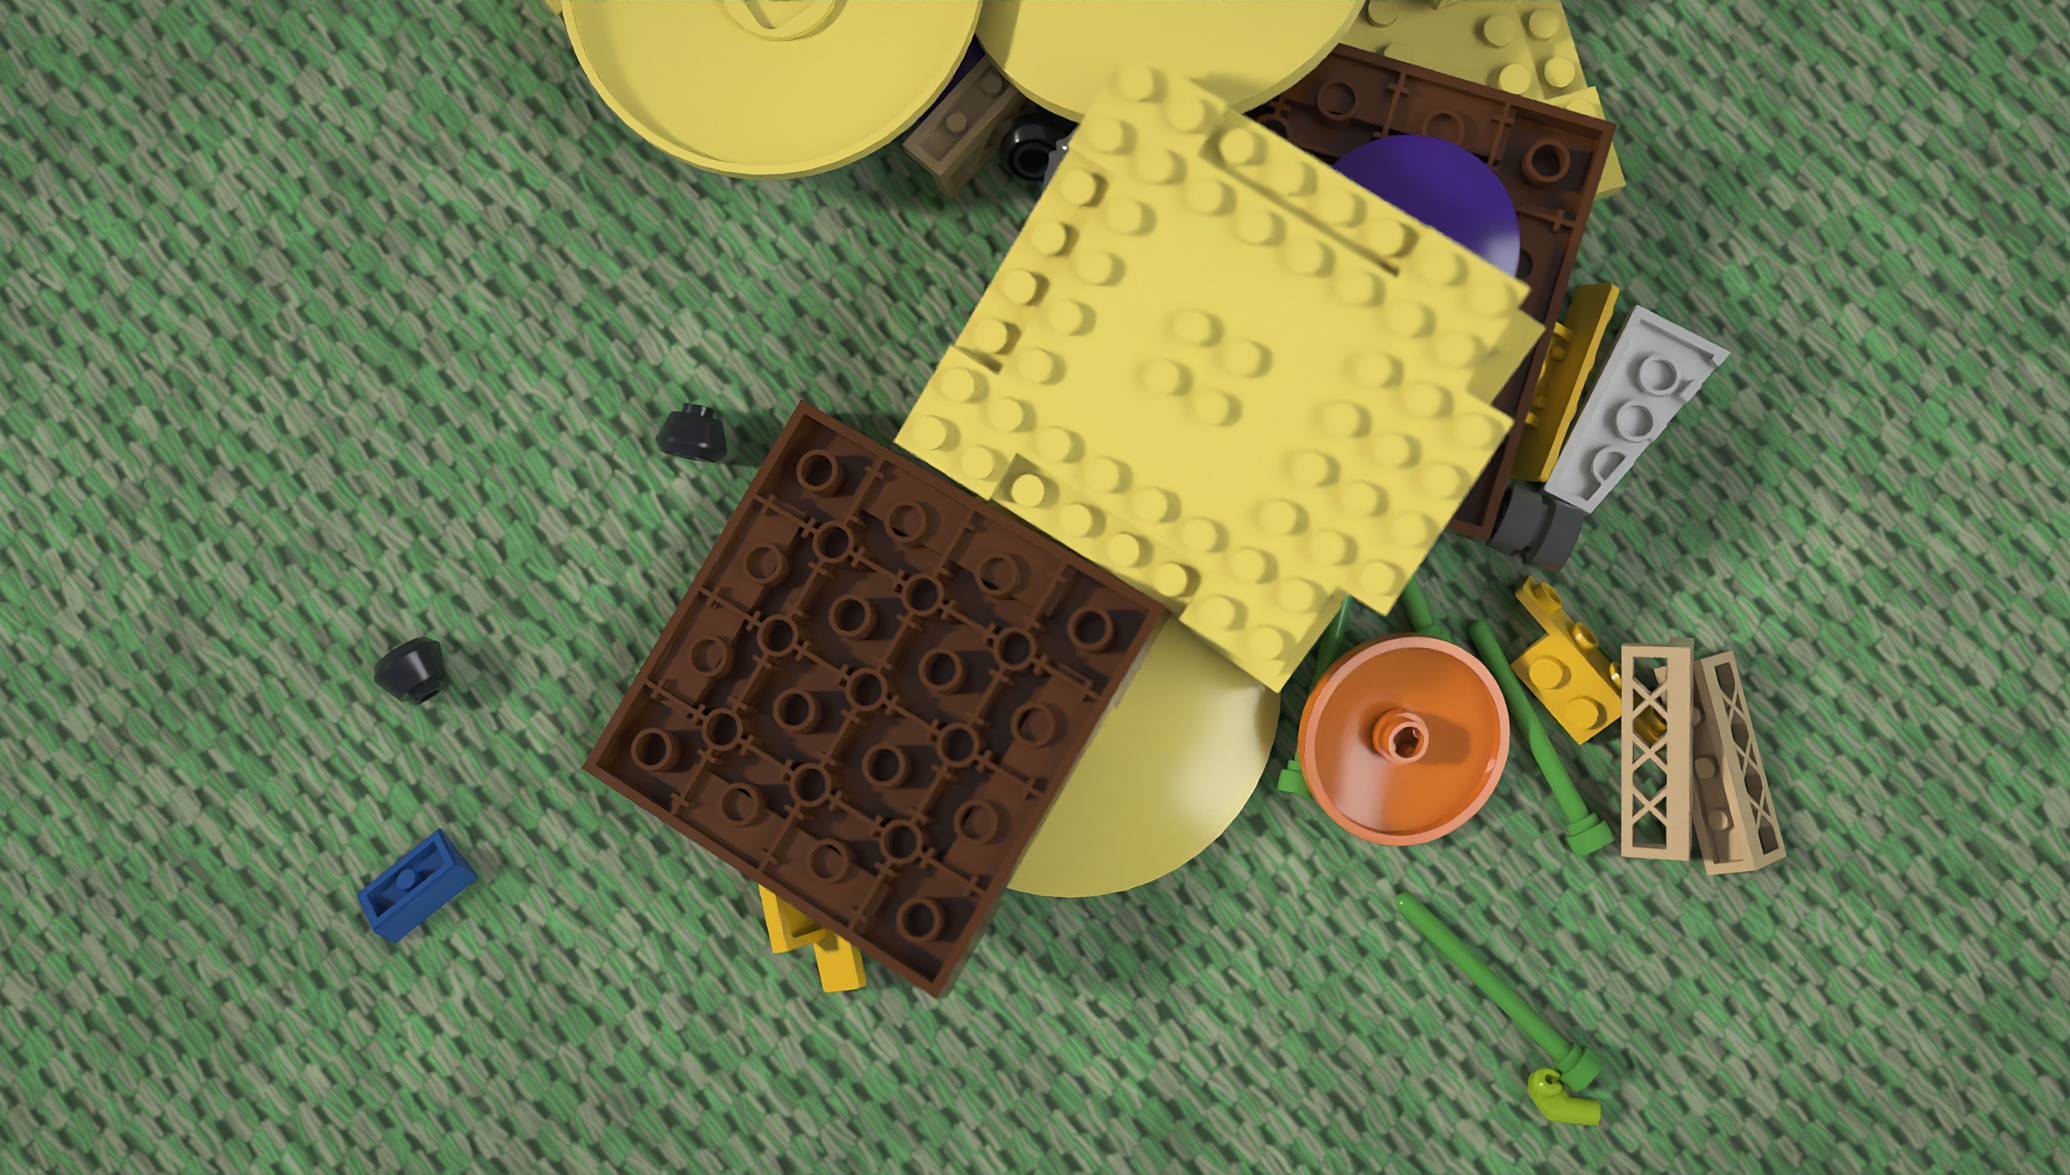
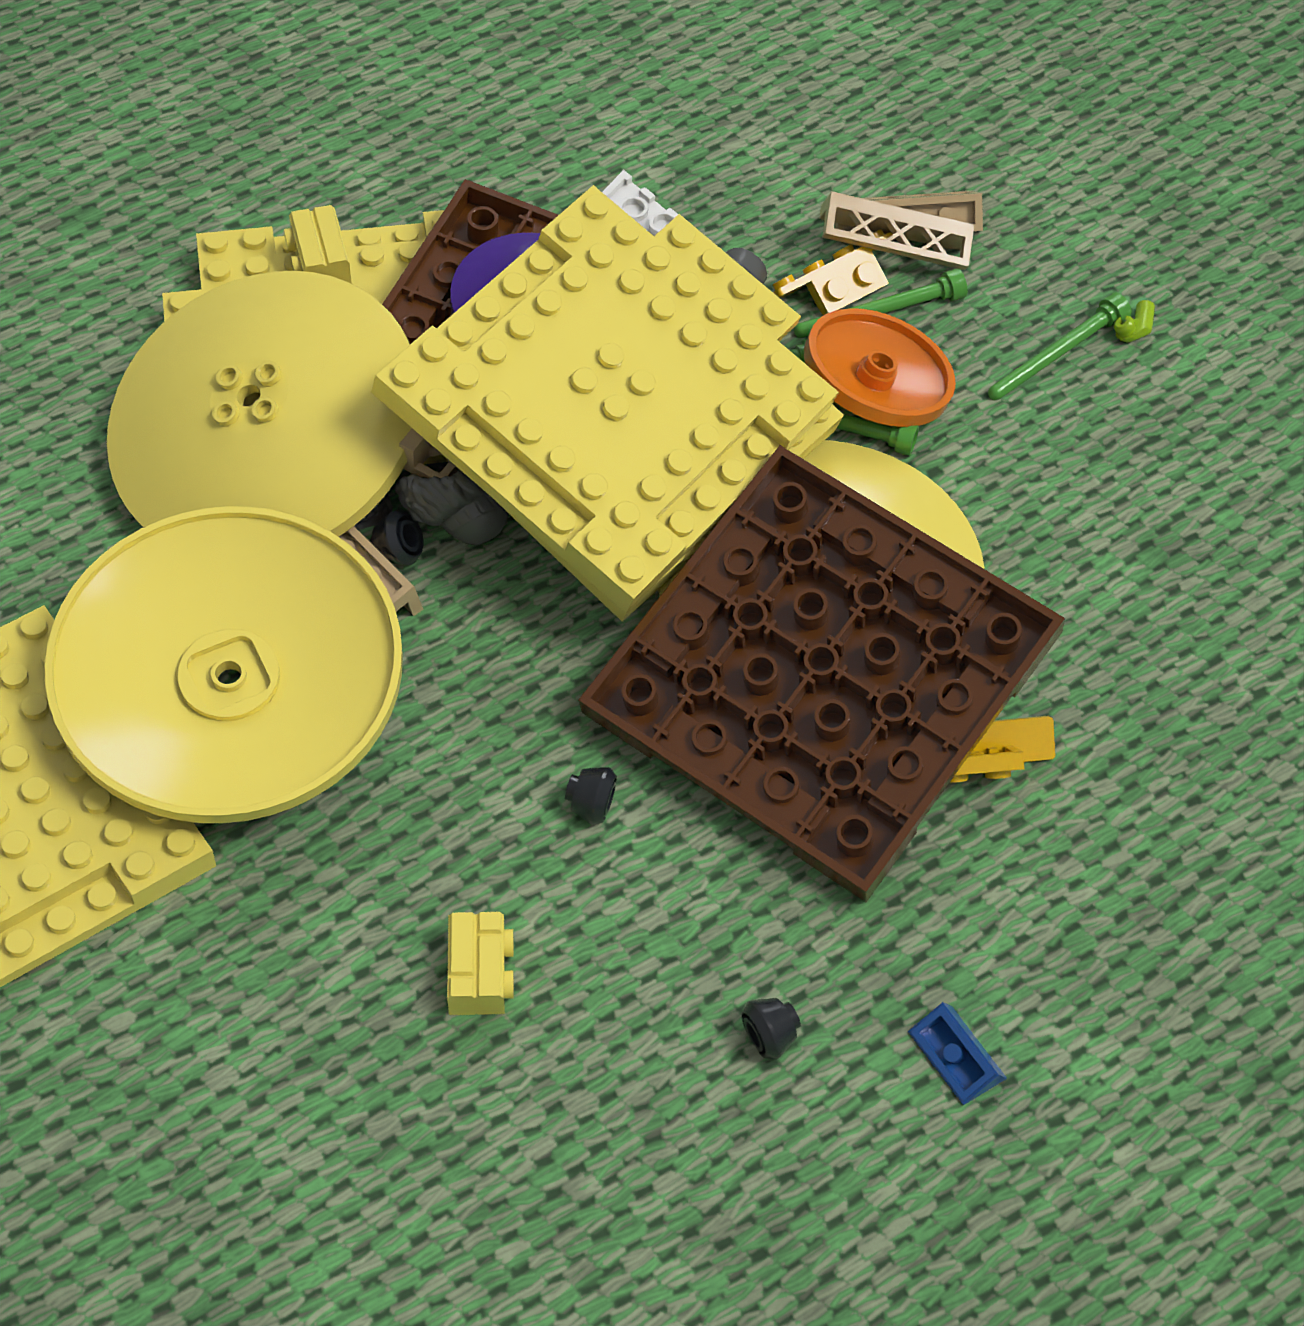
camera: 90 degrees left, 30 degrees down
(456, 336) = (477, 963): none -> light yellow brick

